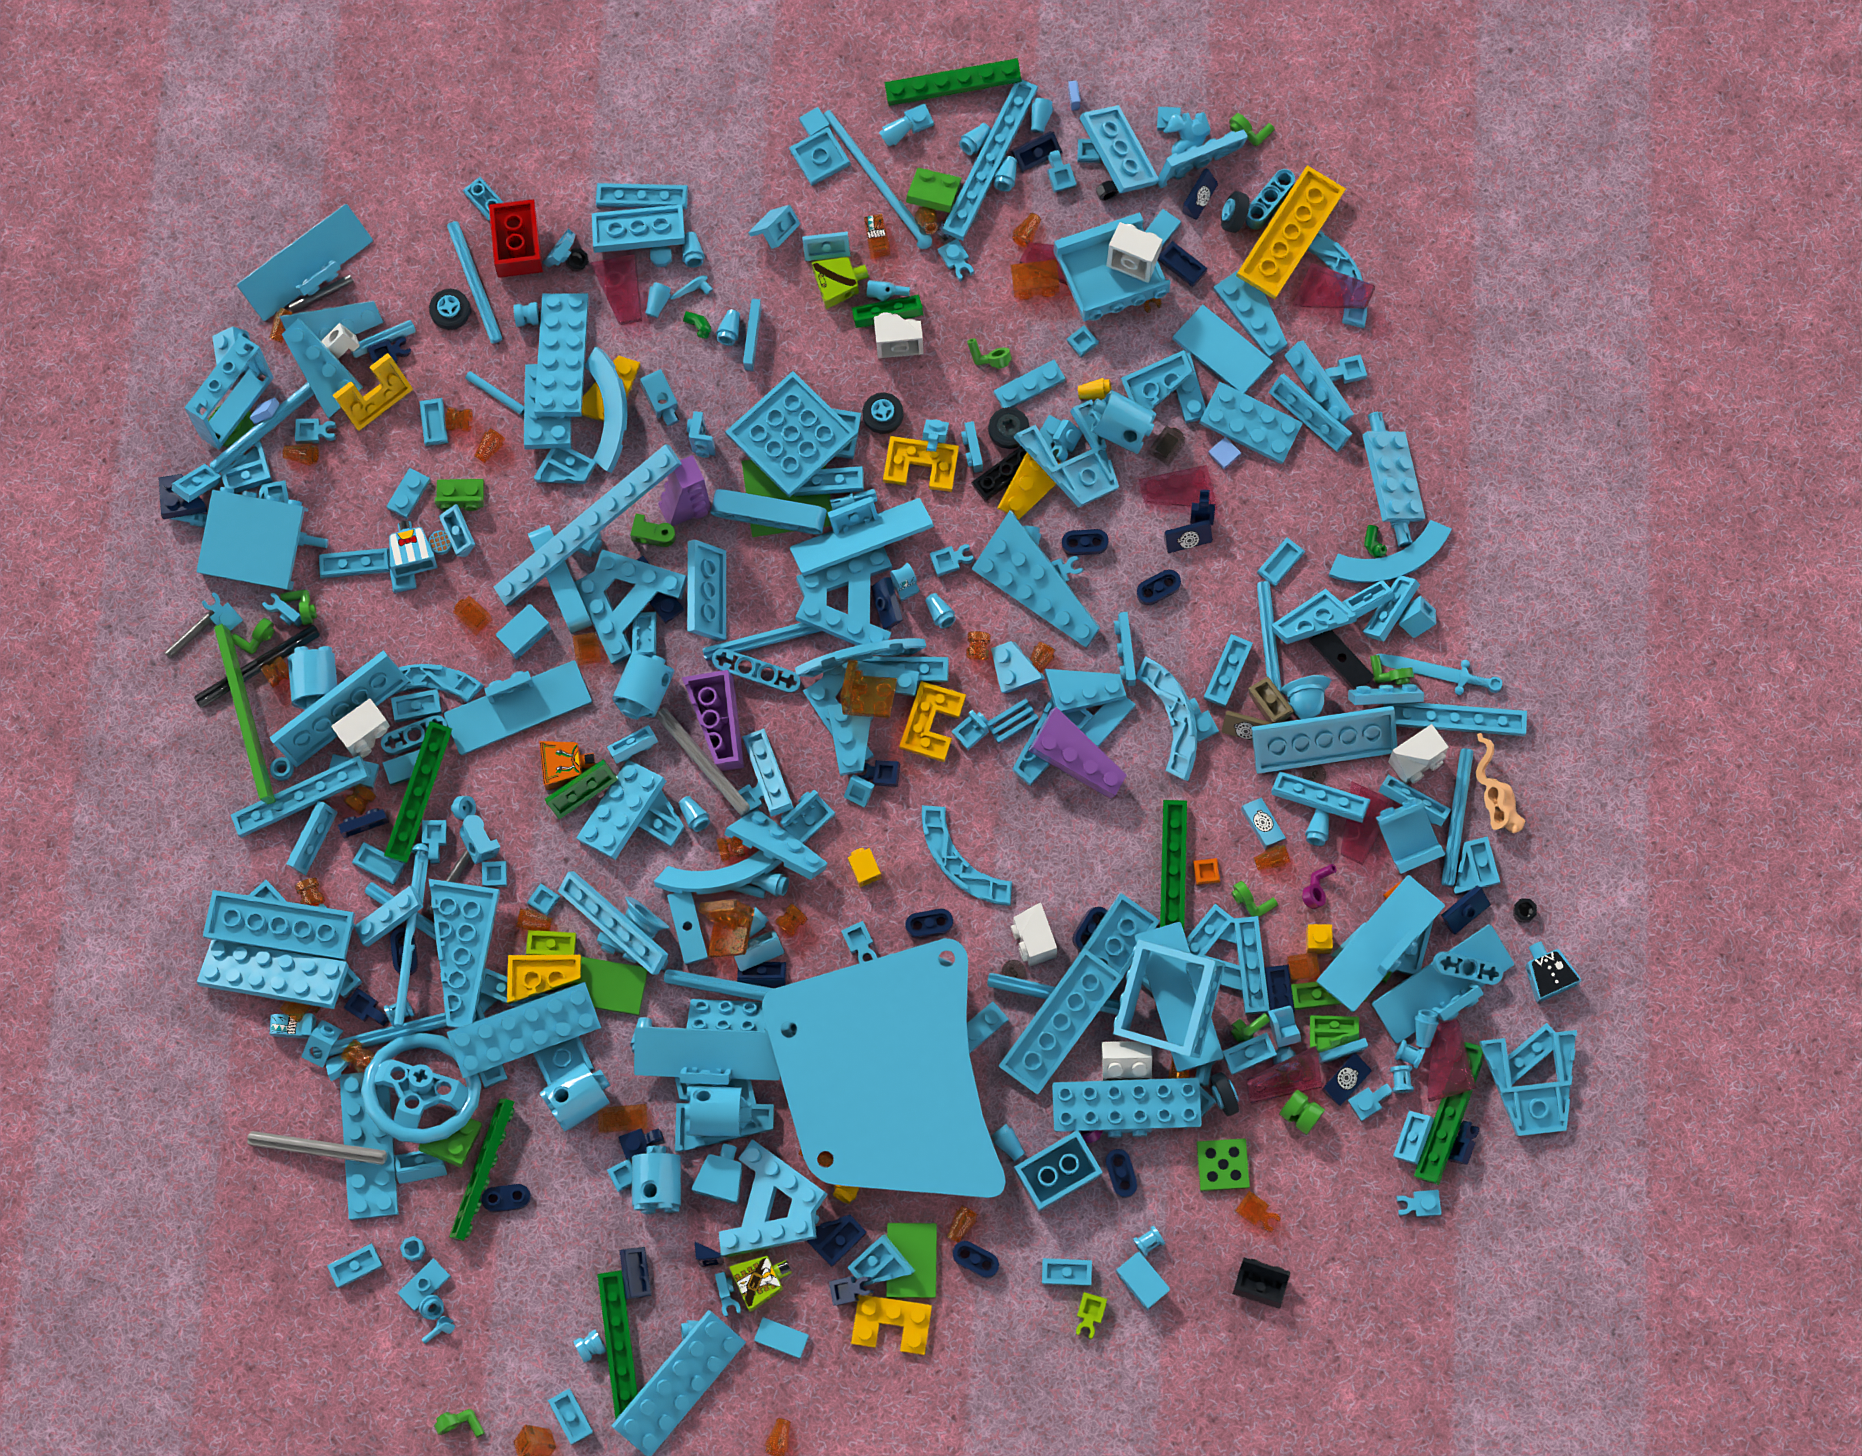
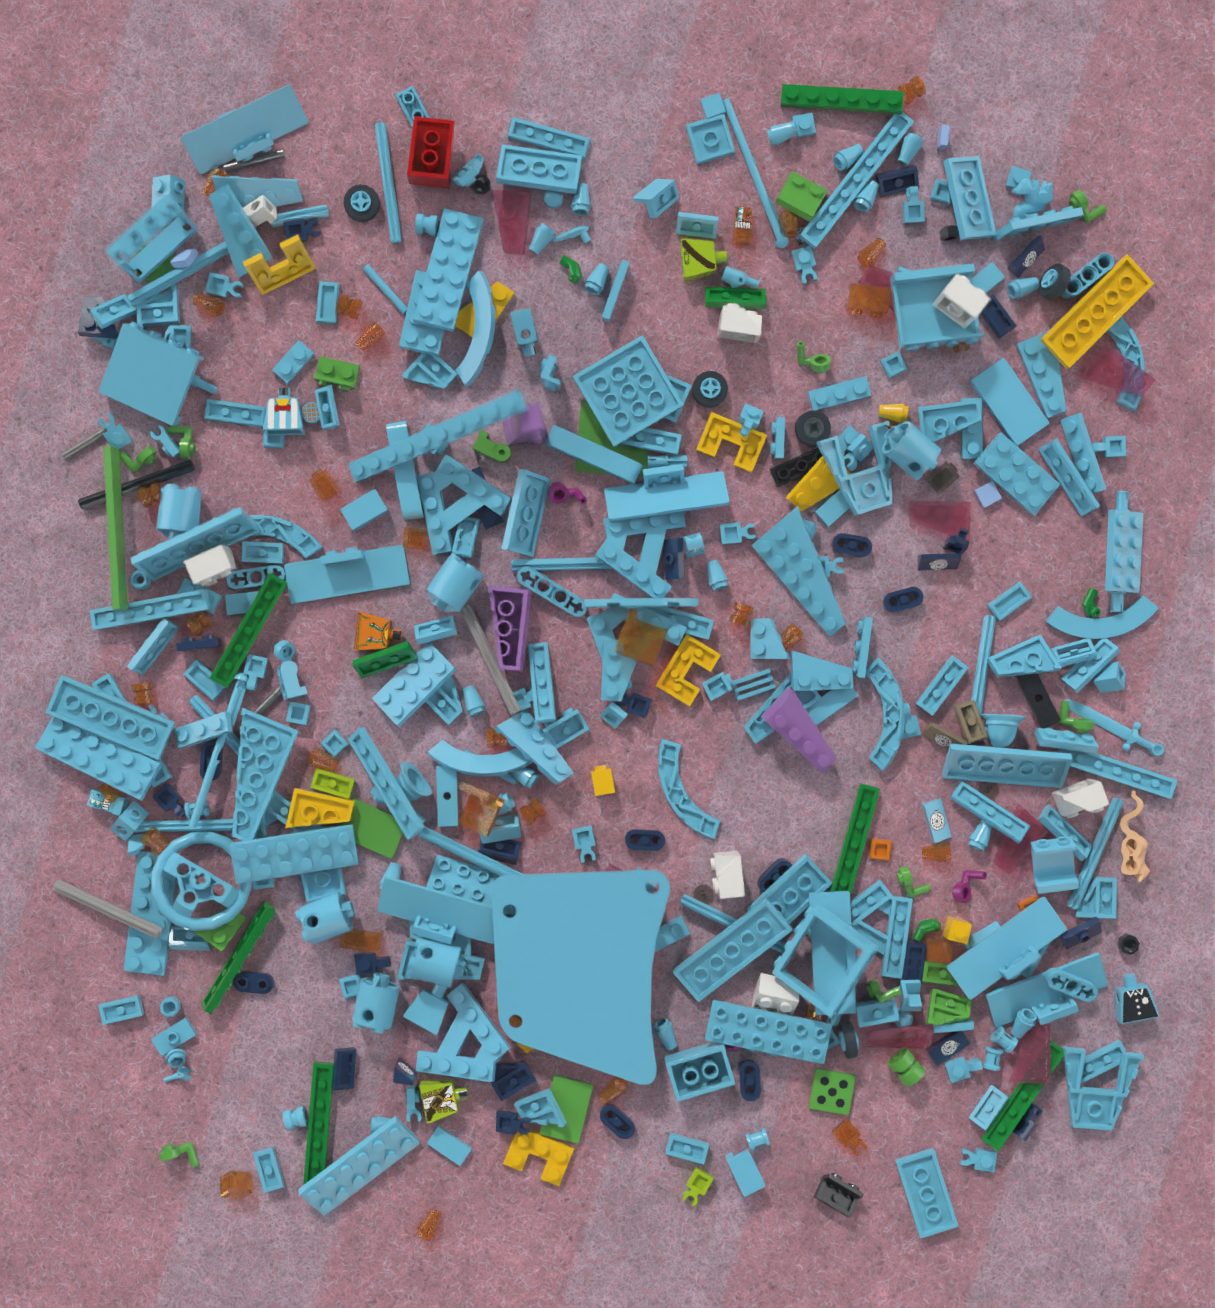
camera: 15 degrees right, 15 degrees up
(745, 561) = (564, 493): none -> magenta plate
(1028, 54) = (913, 89): none -> clear orange wheel
(1054, 508) = (833, 508): none -> medium azure tile
(1203, 227) = (1021, 287): none -> medium azure cone
(1282, 946) = (926, 926): none -> green arm
(1367, 1258) = (926, 1193): none -> medium azure plate

